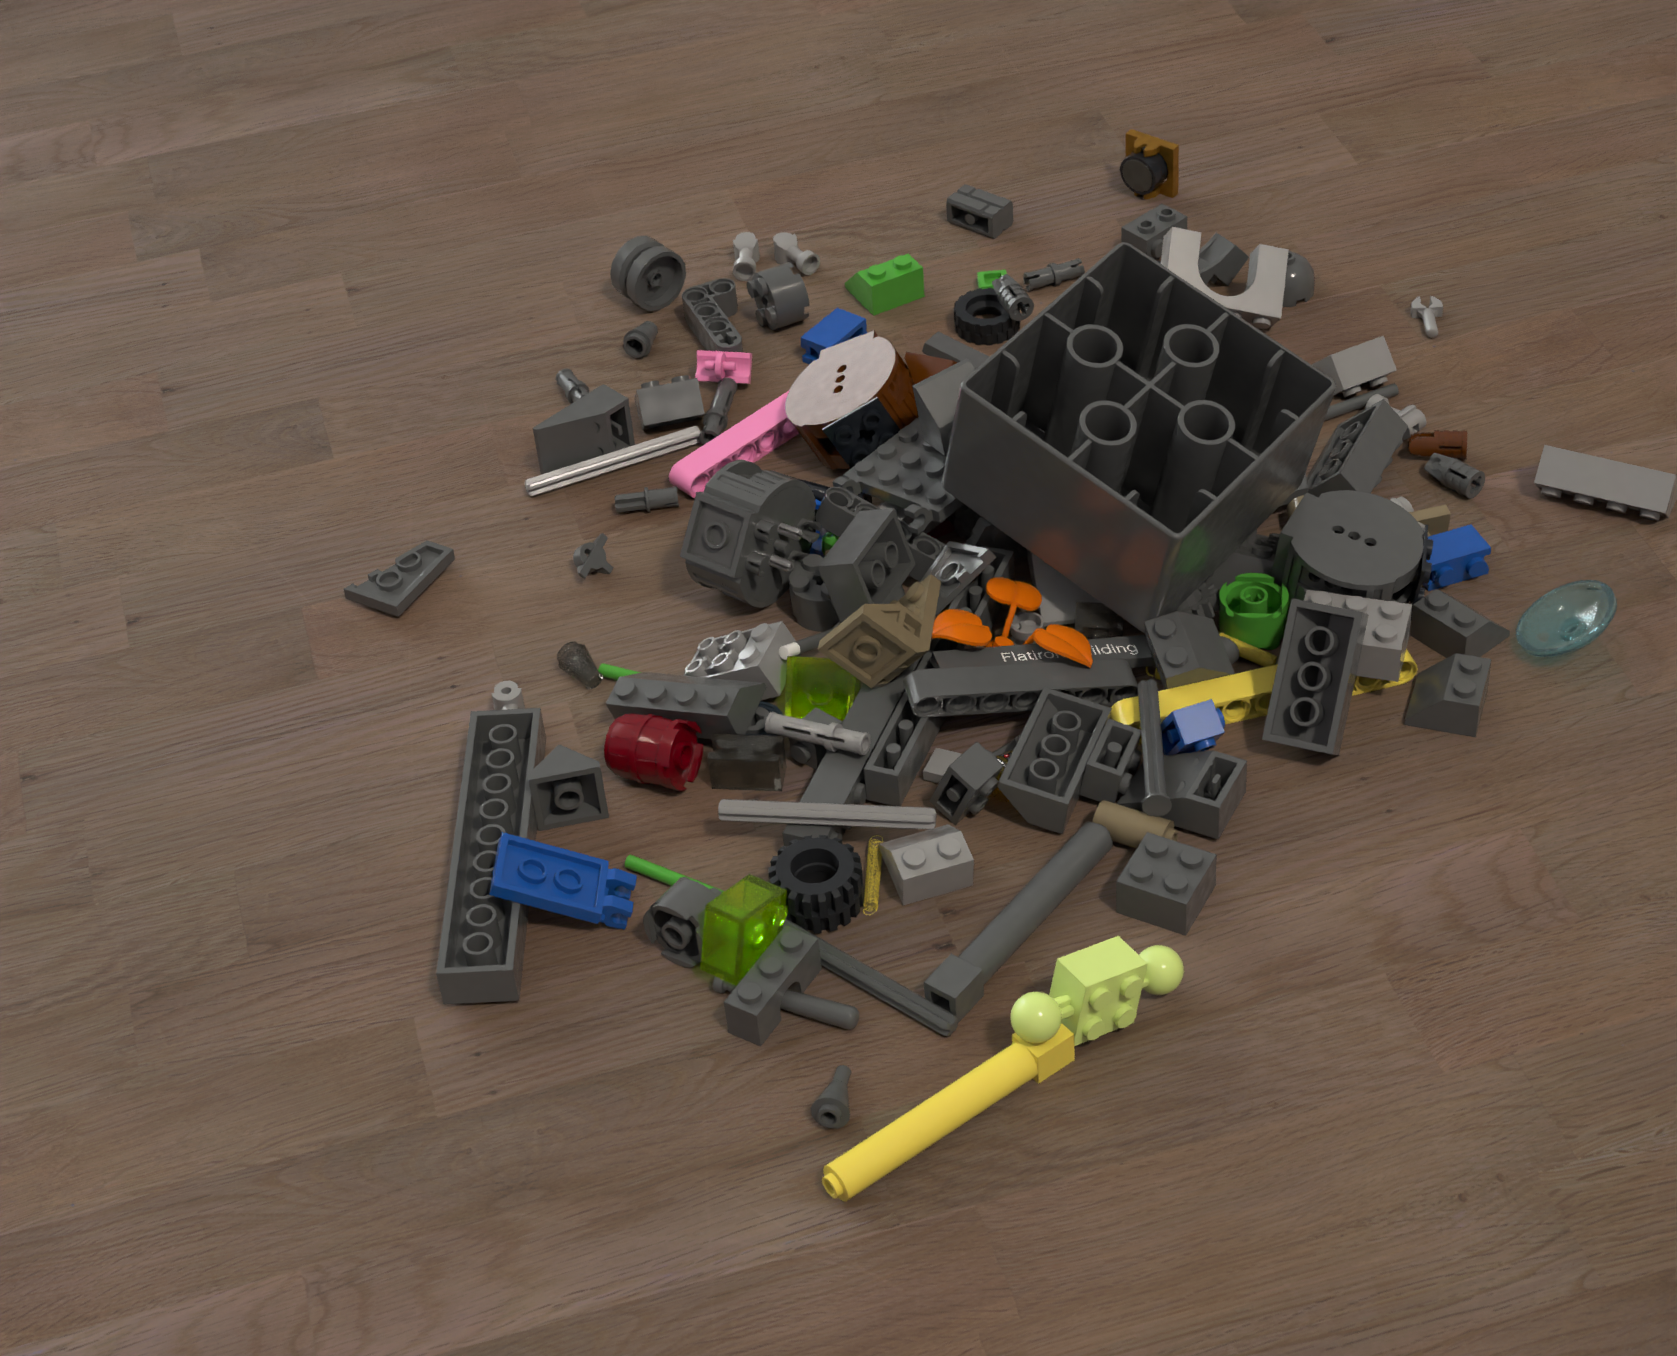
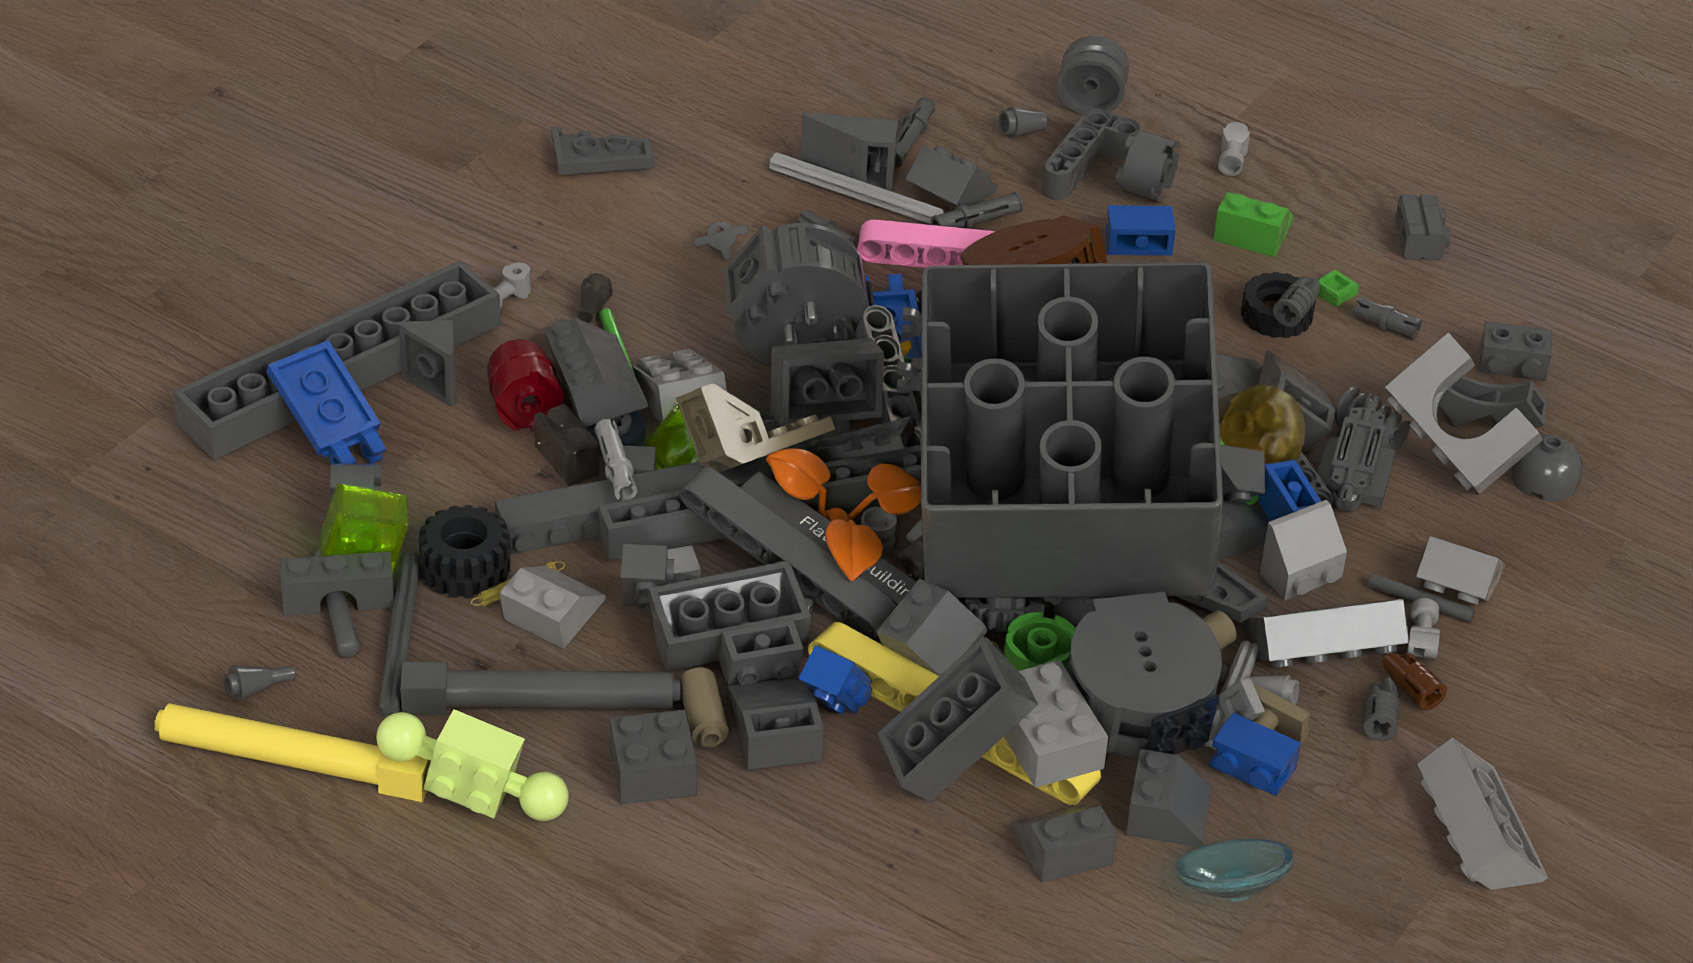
camera: 45 degrees right, 0 degrees up
(656, 872) = (412, 475): bright green bar -> none
(719, 364) = (1031, 185): bright pink hips -> none
(746, 255) = (1205, 122): light grey leg -> none
(827, 814) = (532, 513): light grey axle -> none
(1149, 164) = (1598, 295): piece -> none
(1156, 801) = (786, 665): dark grey axle -> none
(1428, 314) = (1612, 587): light grey bar -> none

